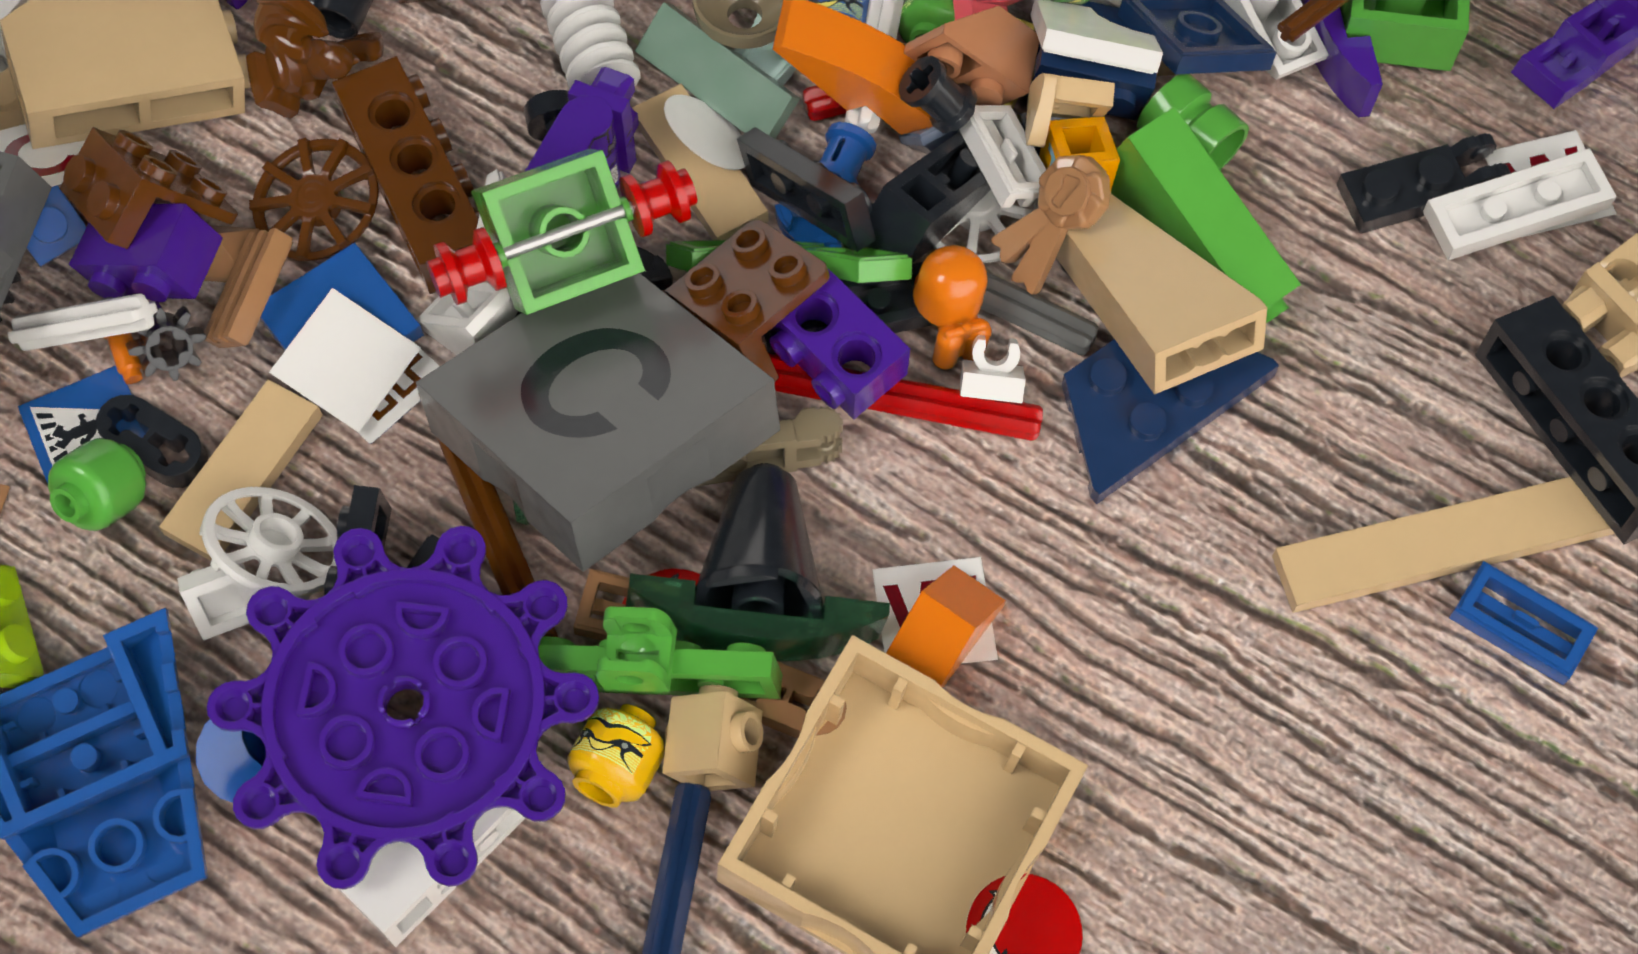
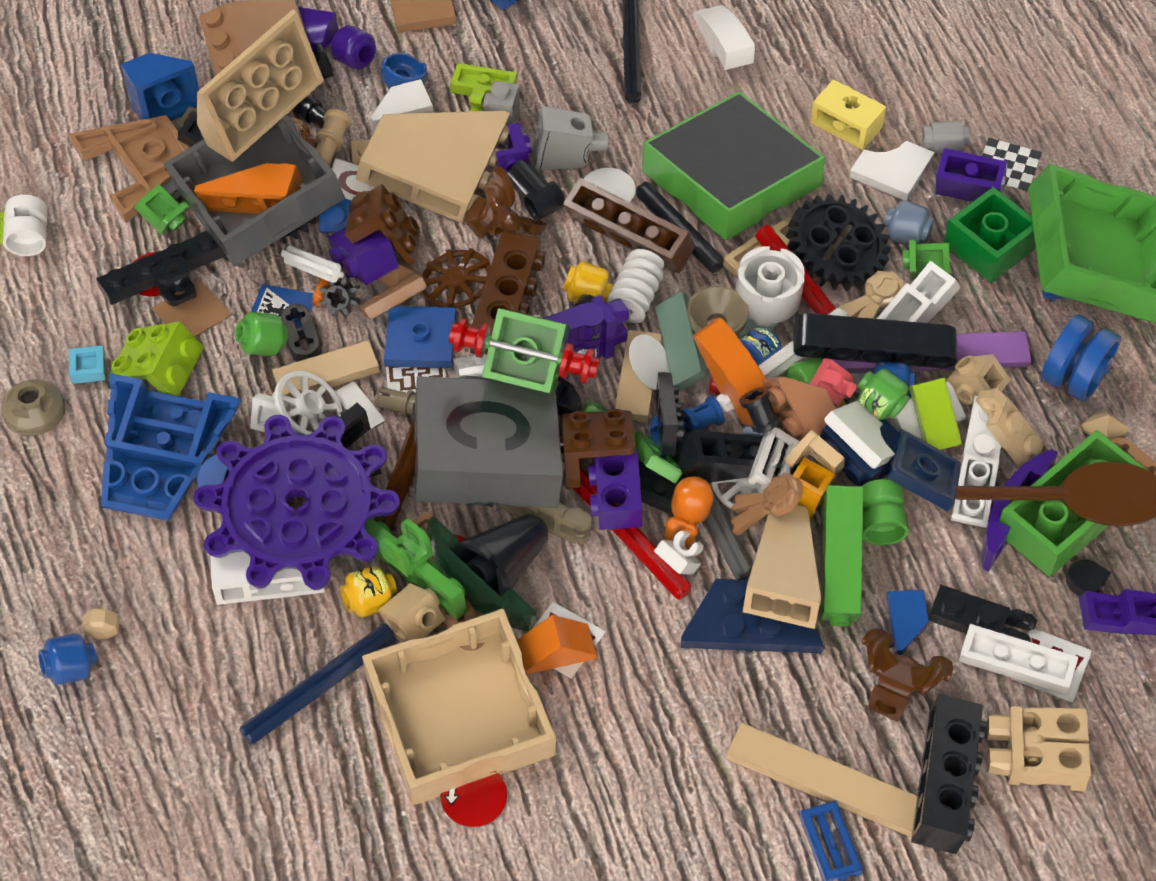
camera: 40 degrees right, 10 degrees down
(329, 484) = (352, 394): none -> white sticker
(345, 360) = (406, 353): white sticker -> none
(394, 439) = (396, 400): none -> dark tan pin
(515, 75) = (588, 280): none -> yellow head
(1338, 250) = (907, 617): none -> blue tile
(1421, 337) = (899, 674): none -> reddish brown animal
(1493, 42) = (1086, 576): none -> black tile

